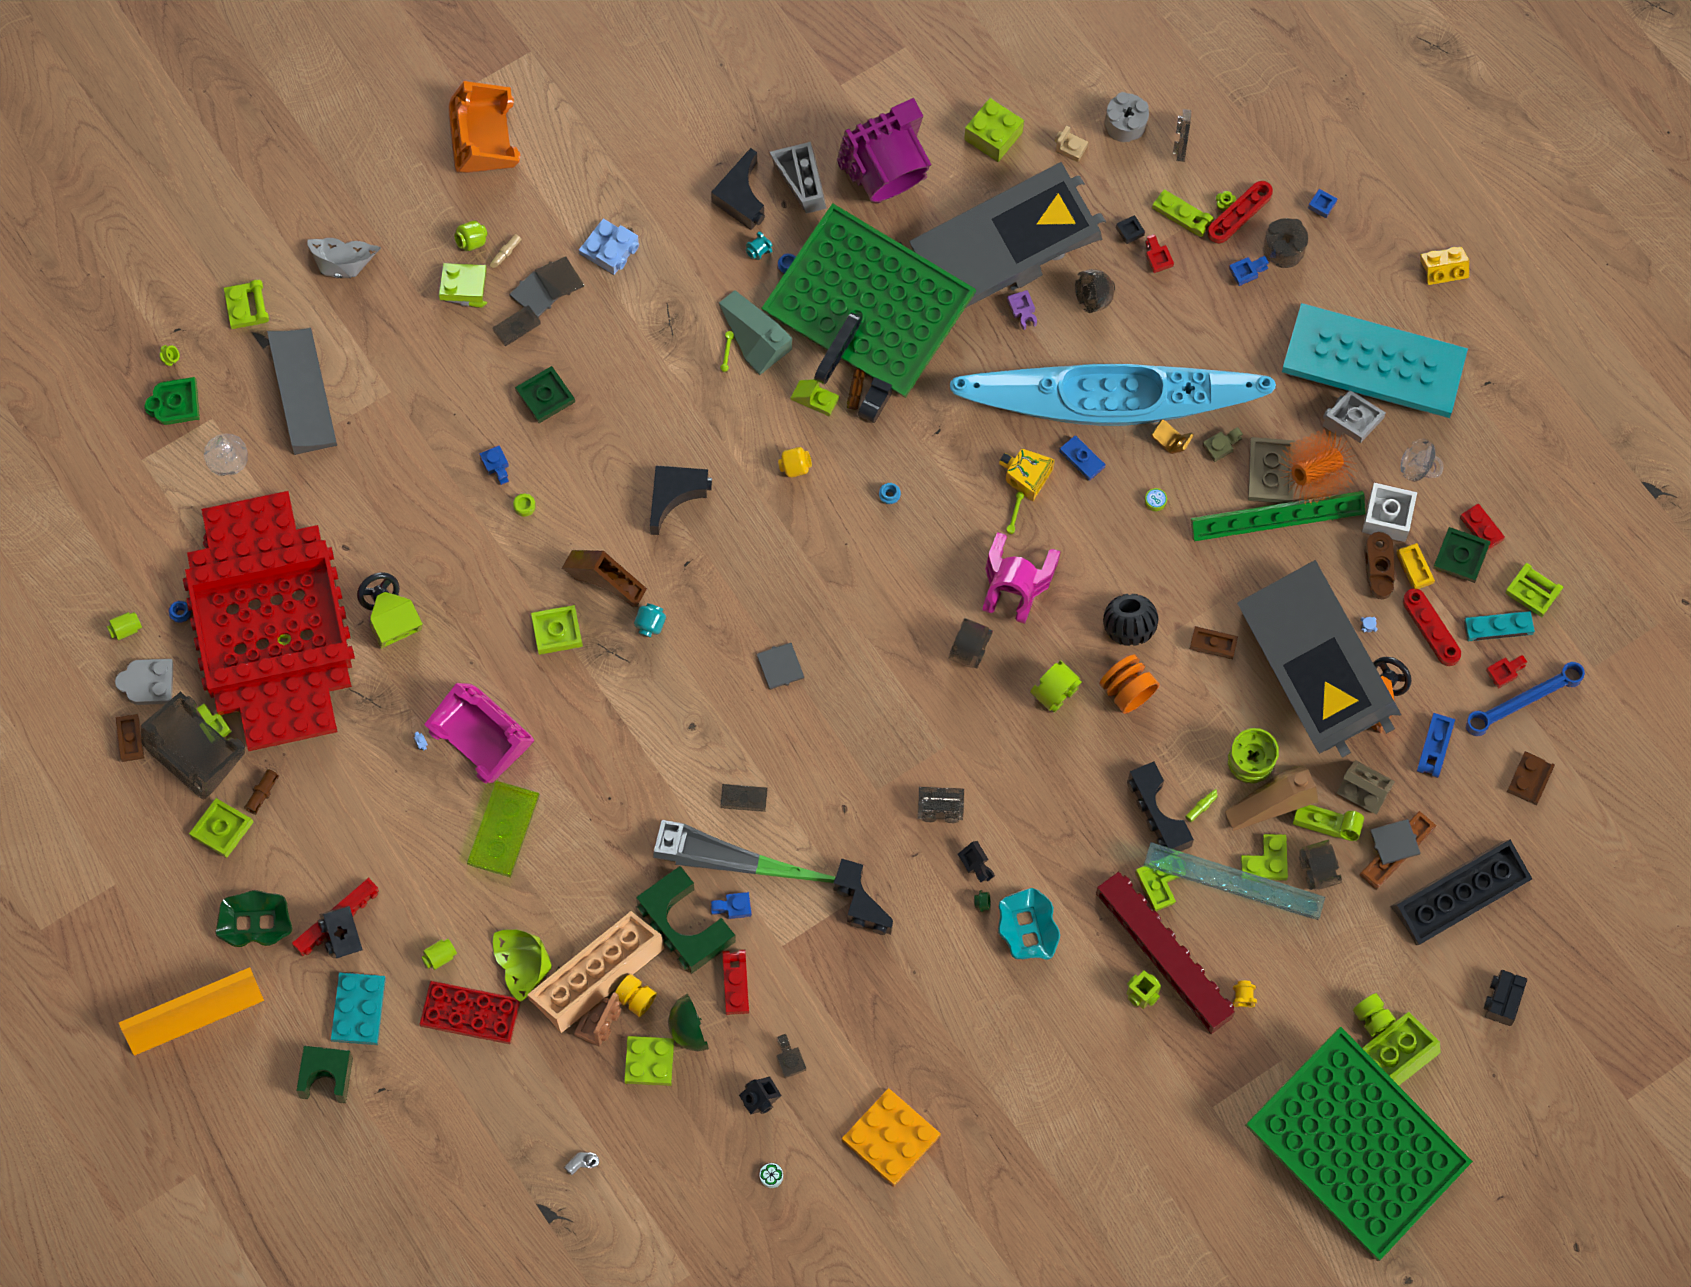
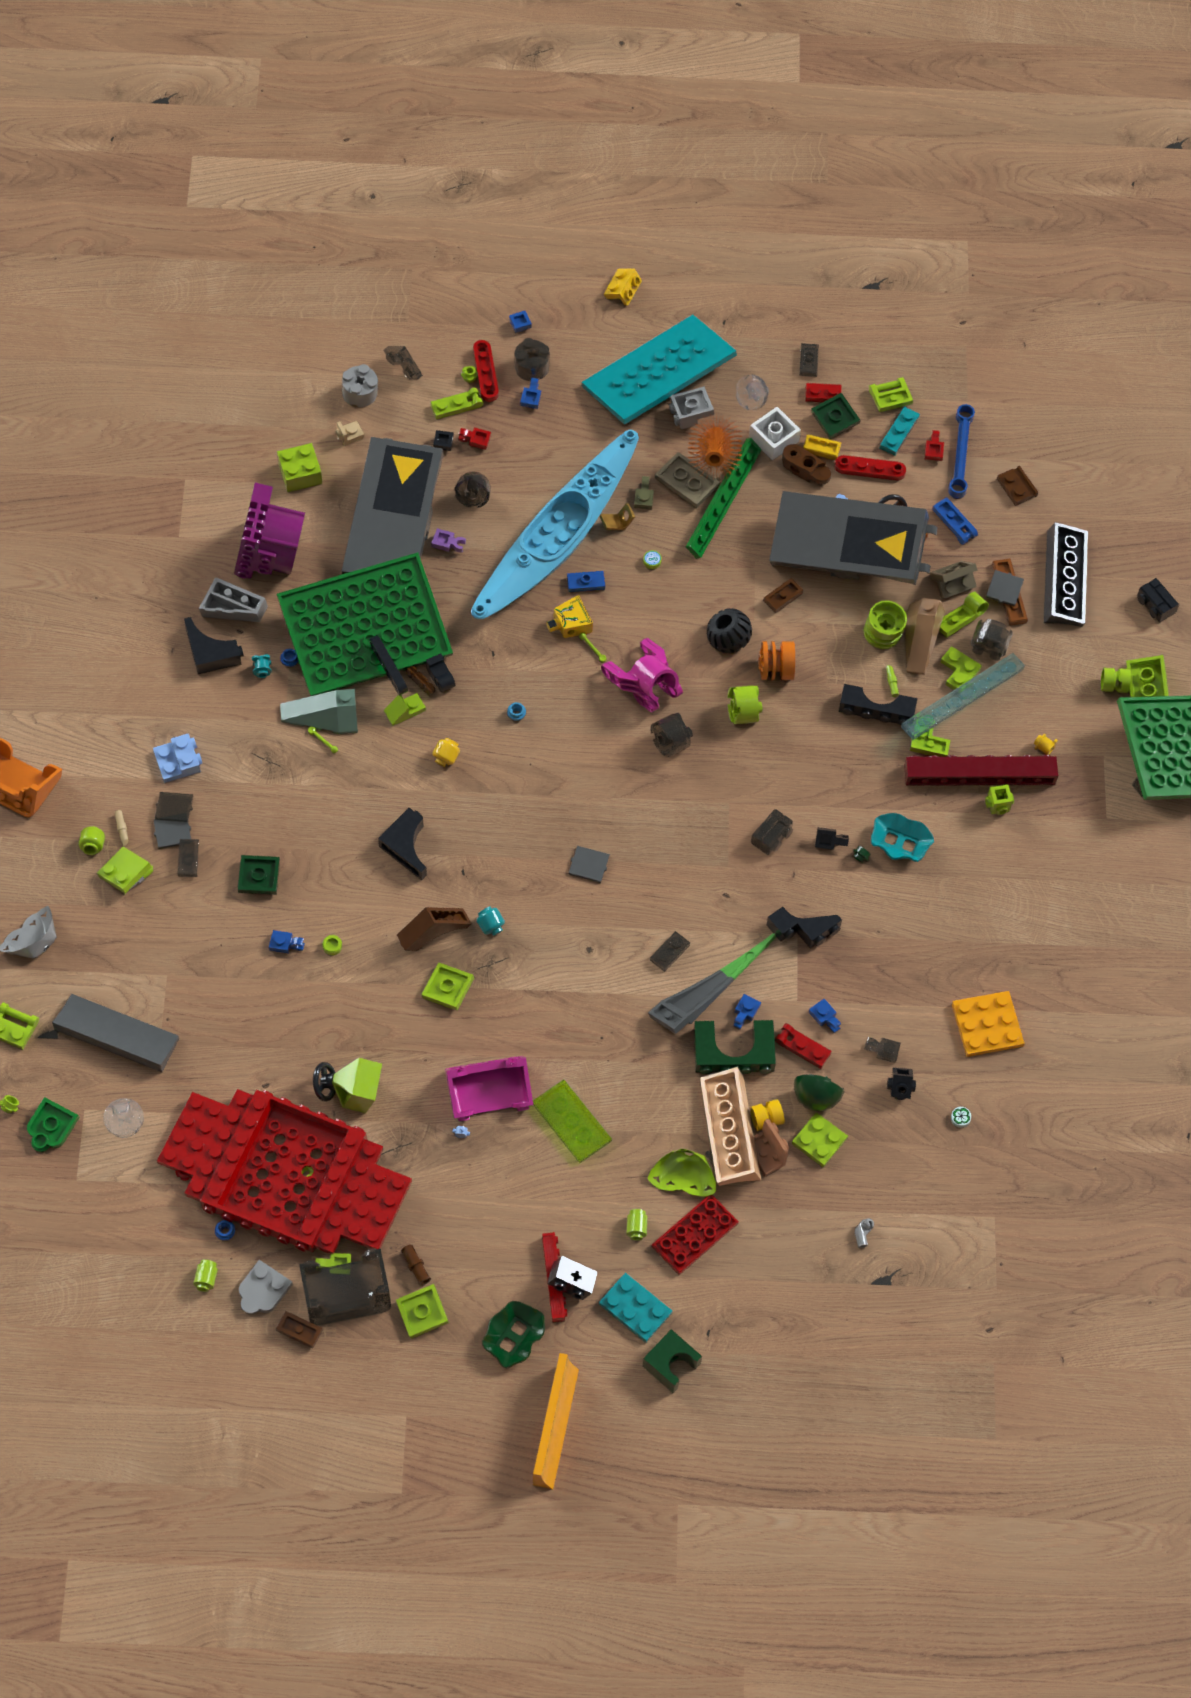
camera: 55 degrees left, 5 degrees down
(784, 979) = (824, 1013): none -> blue plate
(1509, 488) = (809, 360): none -> clear smoke plate

